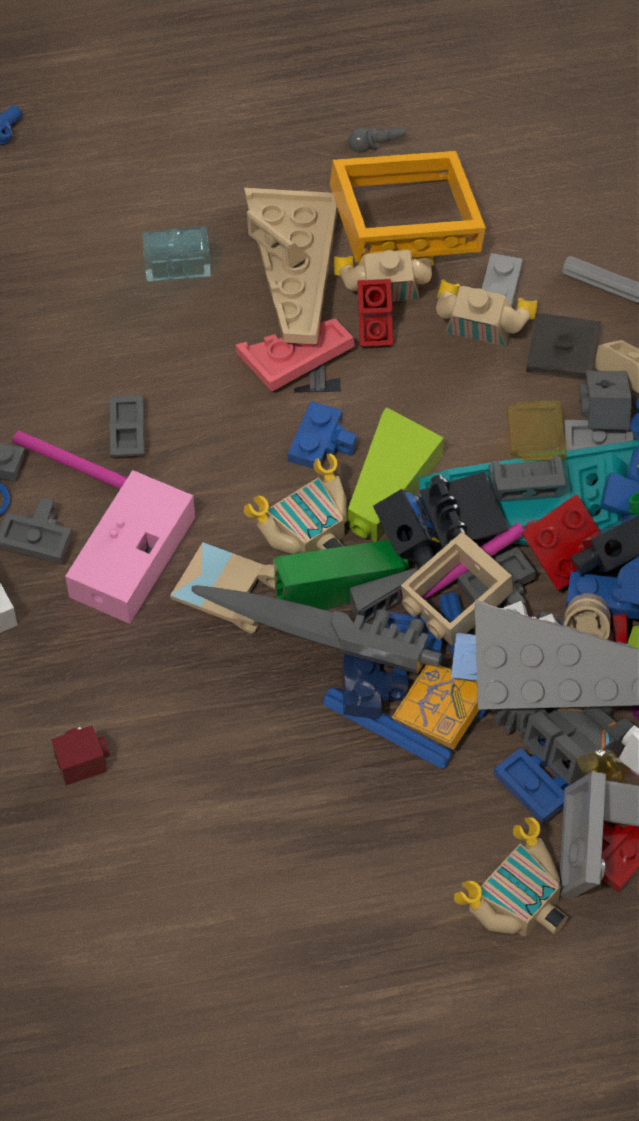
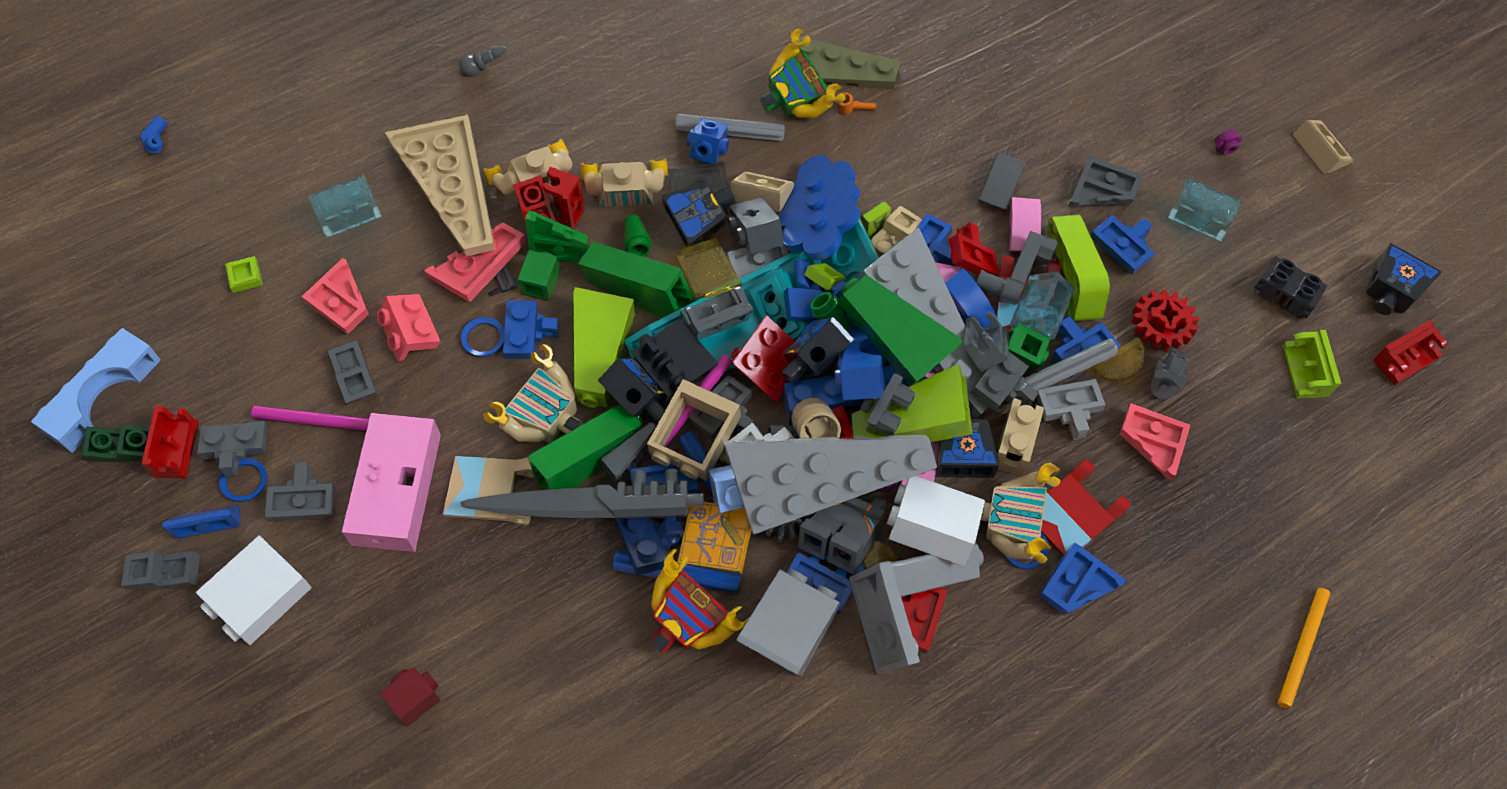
camera: 25 degrees left, 5 degrees up
(50, 295) = (243, 274): none -> lime tile
(137, 347) = (338, 298): none -> coral wing
(198, 395) = (407, 325): none -> coral bracket
(272, 415) = (480, 321): none -> blue piece
(274, 240) = (427, 170): tan slope -> none
(354, 384) = (539, 275): none -> green brick
(383, 353) = (555, 238): none -> green wing
(383, 764) = (688, 611): none -> torso
(412, 312) = (567, 196): none -> red hinge
(420, 239) = (551, 134): light orange window -> none
(466, 425) = (650, 283): none -> green slope
(472, 377) = (636, 237): none -> green cone
(482, 807) = (790, 621): none -> light grey slope
(503, 275) = (628, 145): light grey plate -> none
(519, 890) = (846, 684): torso -> none
(549, 366) = (697, 211): none -> torso
(590, 295) = (708, 141): none -> blue brick
(601, 762) = (873, 553): clear yellow tile -> none

